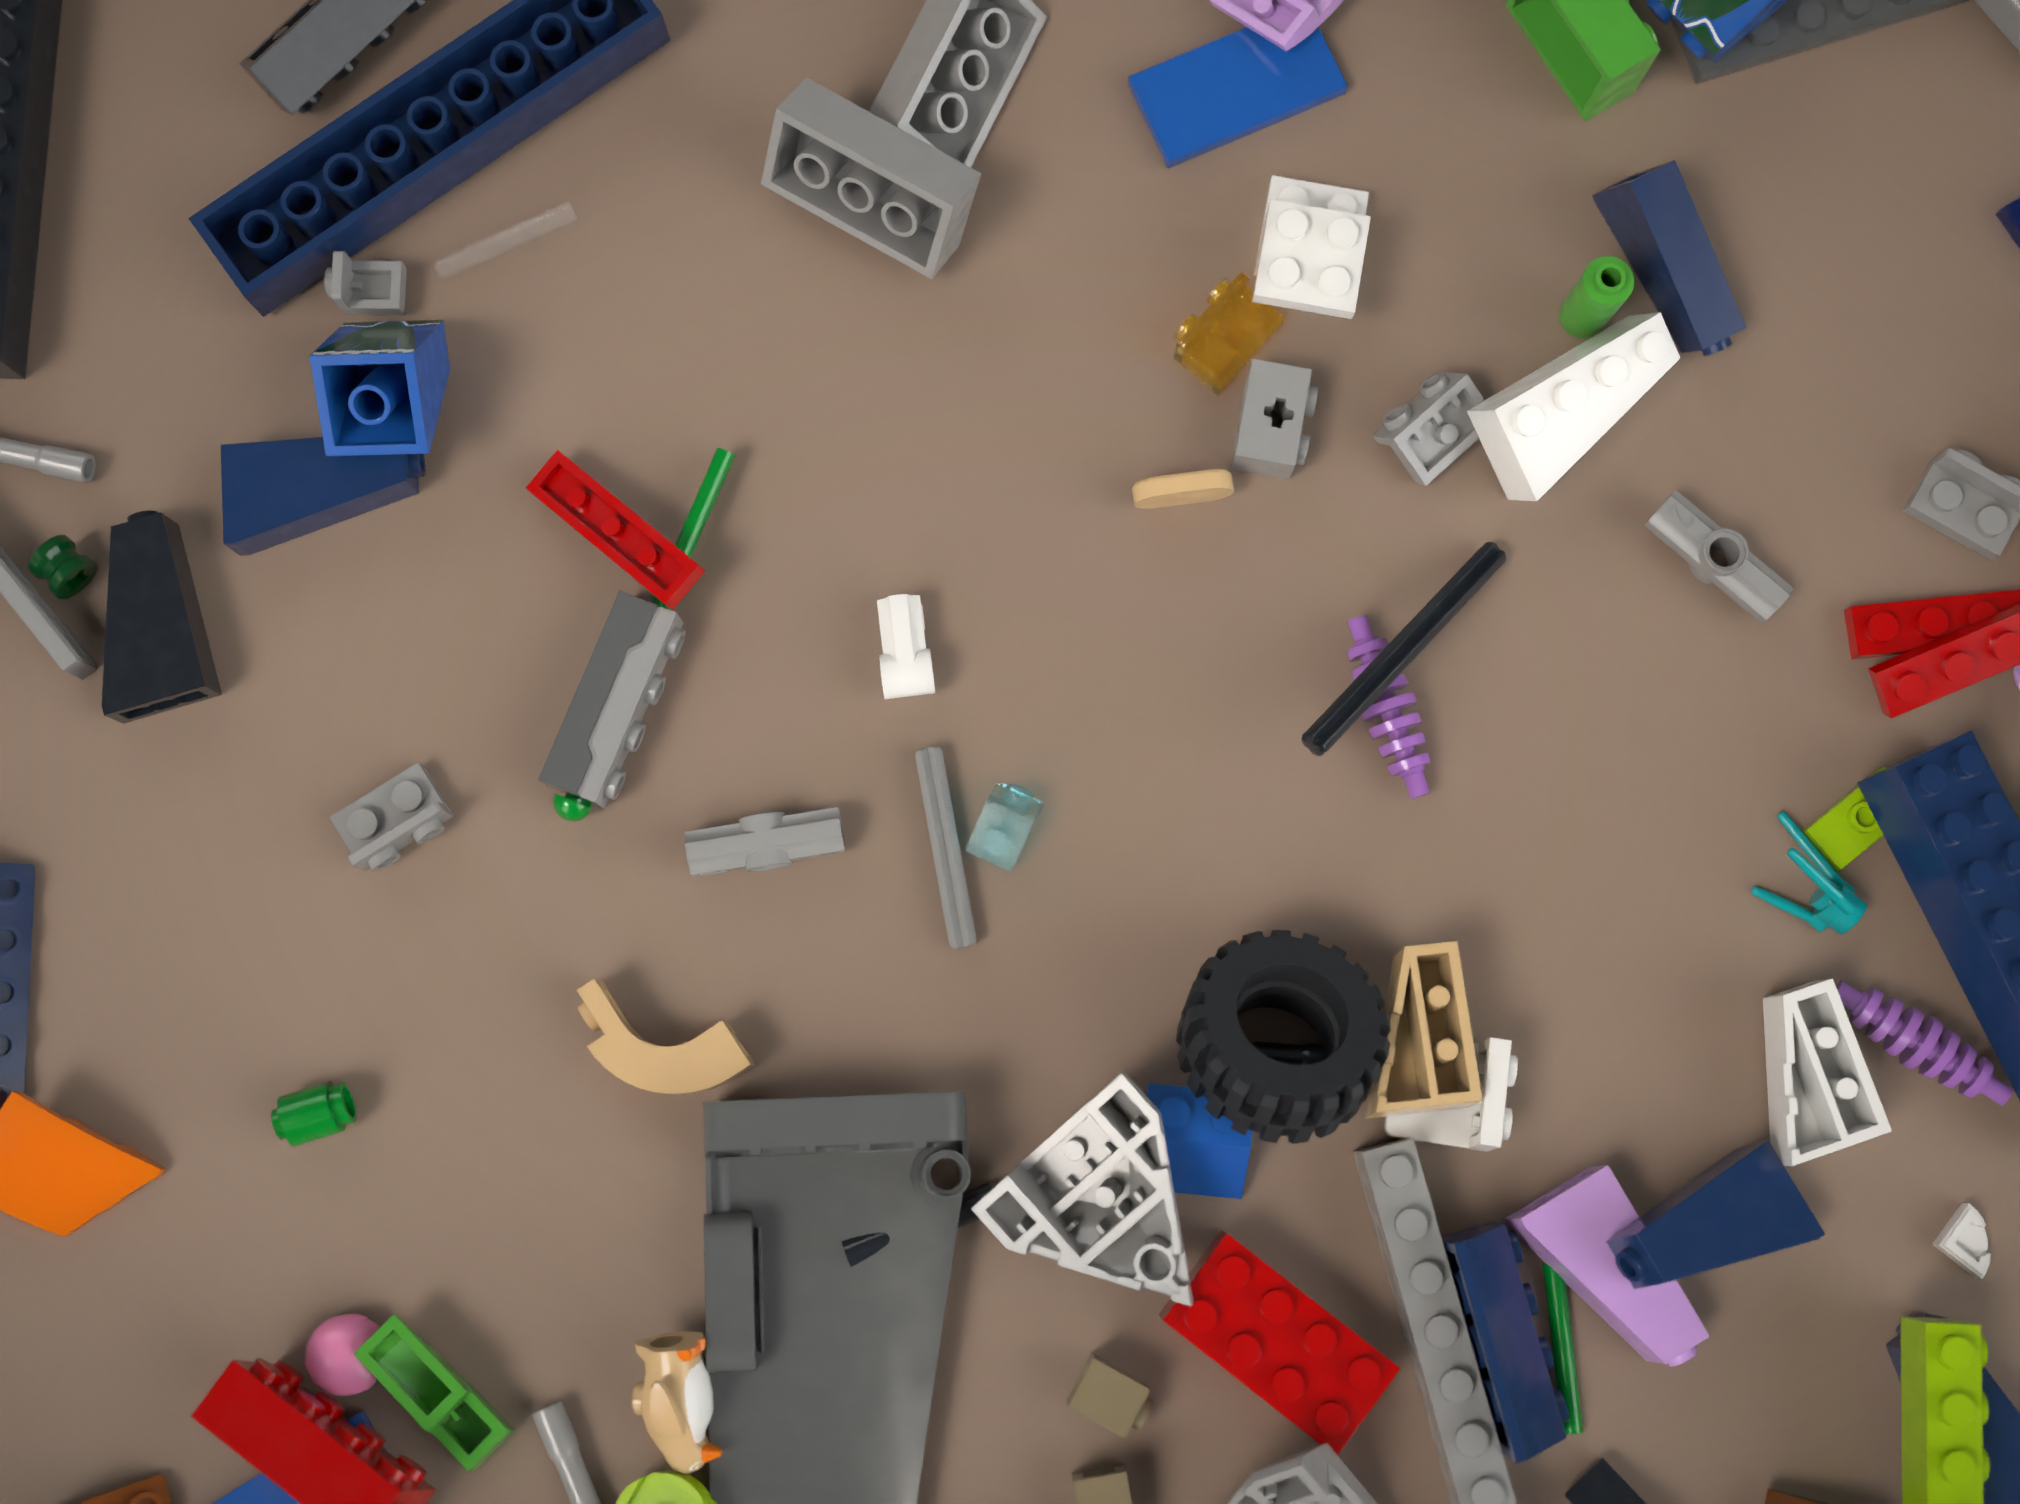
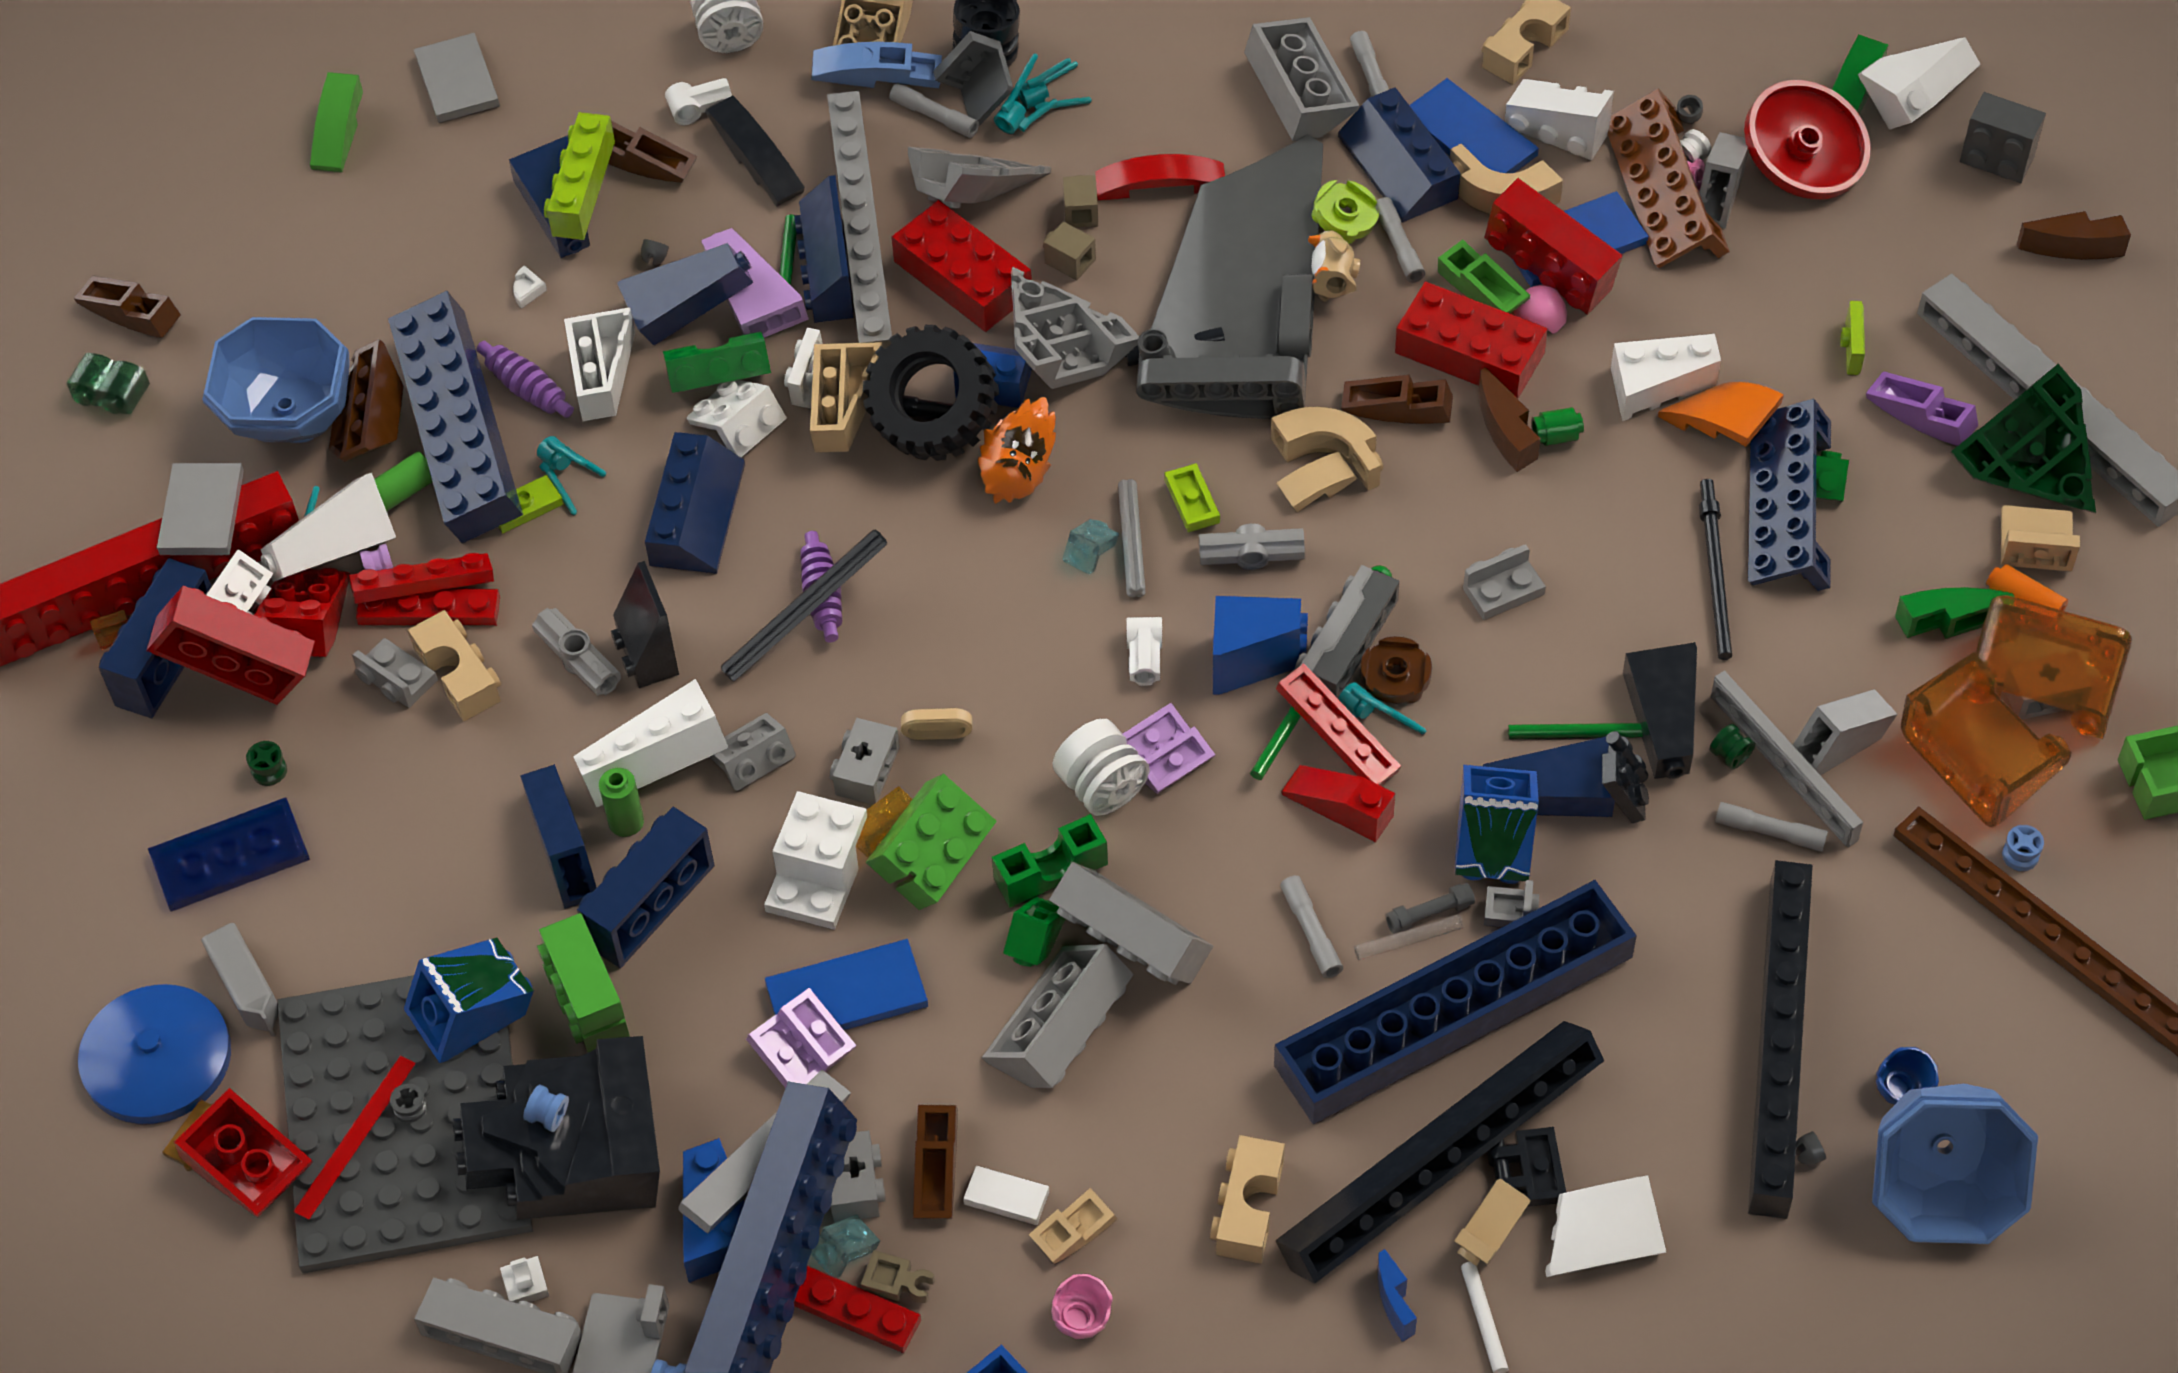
camera: 170 degrees left, 25 degrees down
(86, 982) = (1710, 514): none -> black bar
(154, 1232) = (1663, 369): none -> white wedge
(207, 471) = (1622, 777): none -> black plate
(288, 587) = (1595, 730): none -> green bar
(393, 1115) = (1507, 422): none -> reddish brown slope
(439, 301) = (1401, 918): none -> dark grey bar
(449, 1268) = (1467, 336): none -> red brick
(521, 630) = (1392, 687): none -> reddish brown plate
(564, 1143) = (1399, 400): none -> reddish brown slope
(592, 589) = (1362, 704): none -> teal plant
(606, 429) = (1343, 799): none -> red slope
(648, 264) = (1319, 943): none -> light grey piece
(677, 977) = (1314, 479): none -> tan slope
(742, 651) = (1255, 639): none -> blue slope
(861, 492) = (1168, 747): none -> lavender slope
(862, 924) = (1192, 497): none -> lime plate
(934, 416) = (1100, 767): none -> white wheel
(1005, 170) = (1033, 932): none -> green slope
(1021, 263) = (1027, 874): none -> green arch
(1135, 965) = (1018, 451): none -> orange head
(1158, 278) = (931, 841): none -> bright green piece
(1535, 173) = (647, 885): none -> dark blue brick
(1579, 1009) = (739, 413): none -> white bracket
(1591, 1102) = (696, 368): none -> green arch
(1606, 831) = (694, 504): none -> dark blue slope
(1621, 574) = (644, 631): none -> black slope
(1780, 1331) = (653, 249): none -> dark grey hinge
(1852, 493) = (444, 643): none -> tan arch

